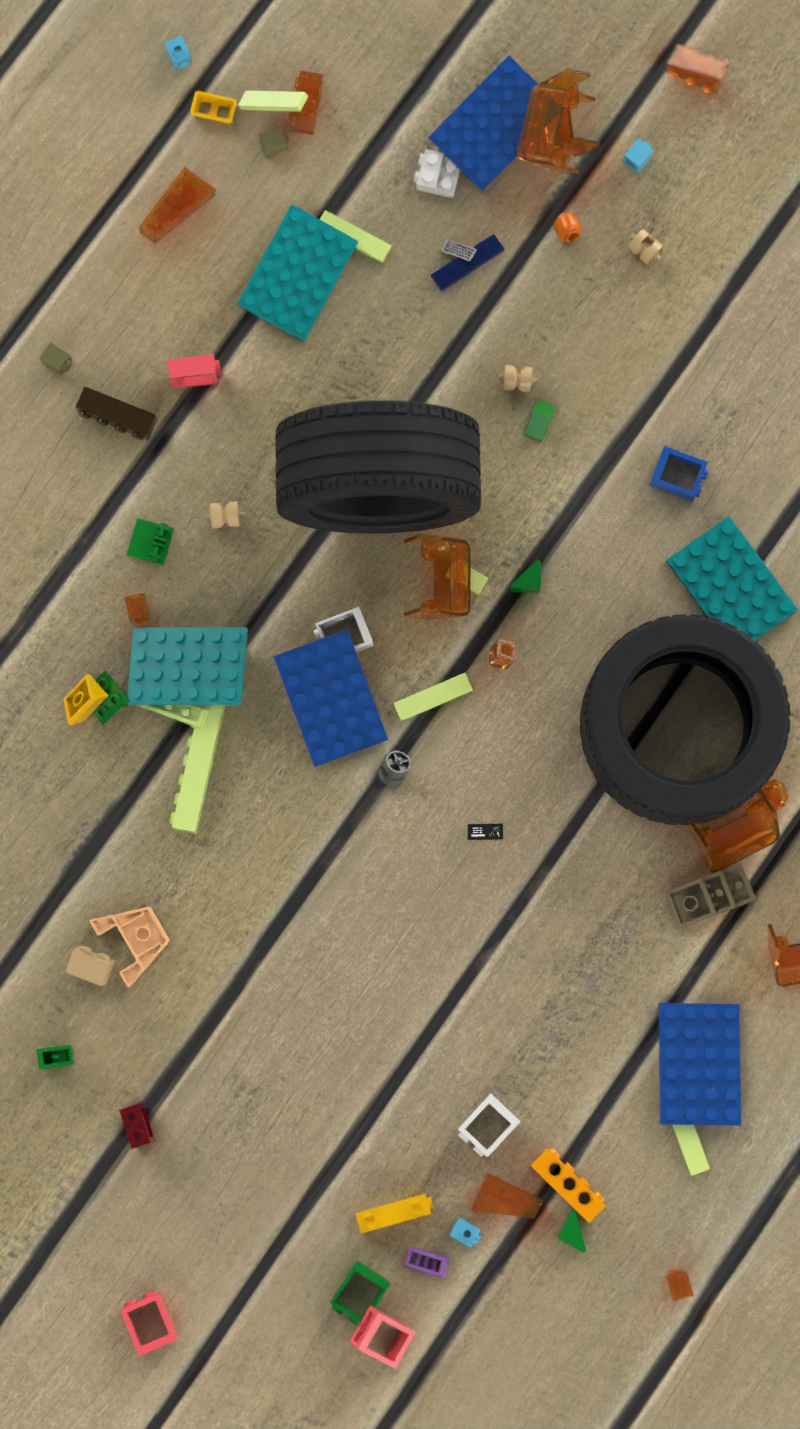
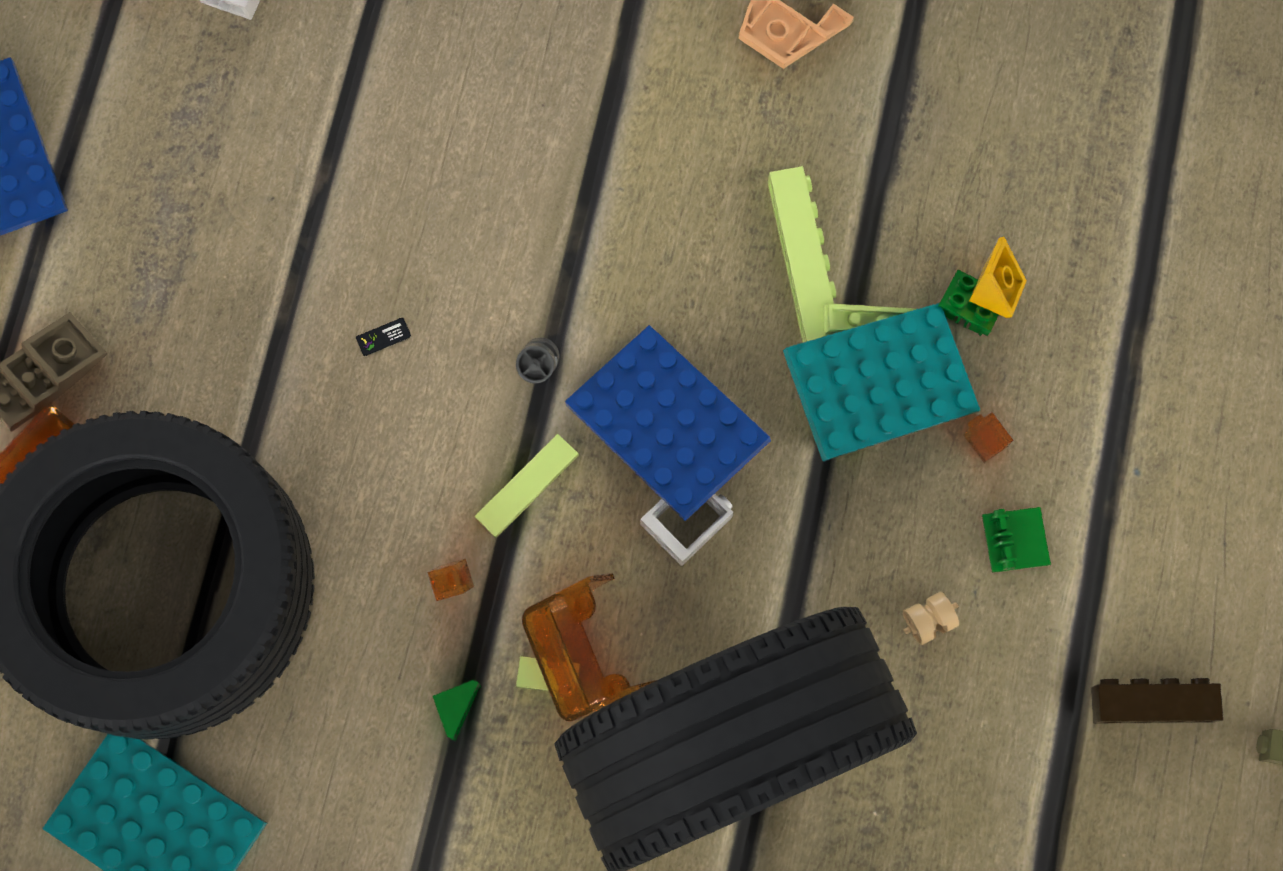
camera: 155 degrees right, 5 degrees down
(194, 371) = (1078, 811): coral window -> none

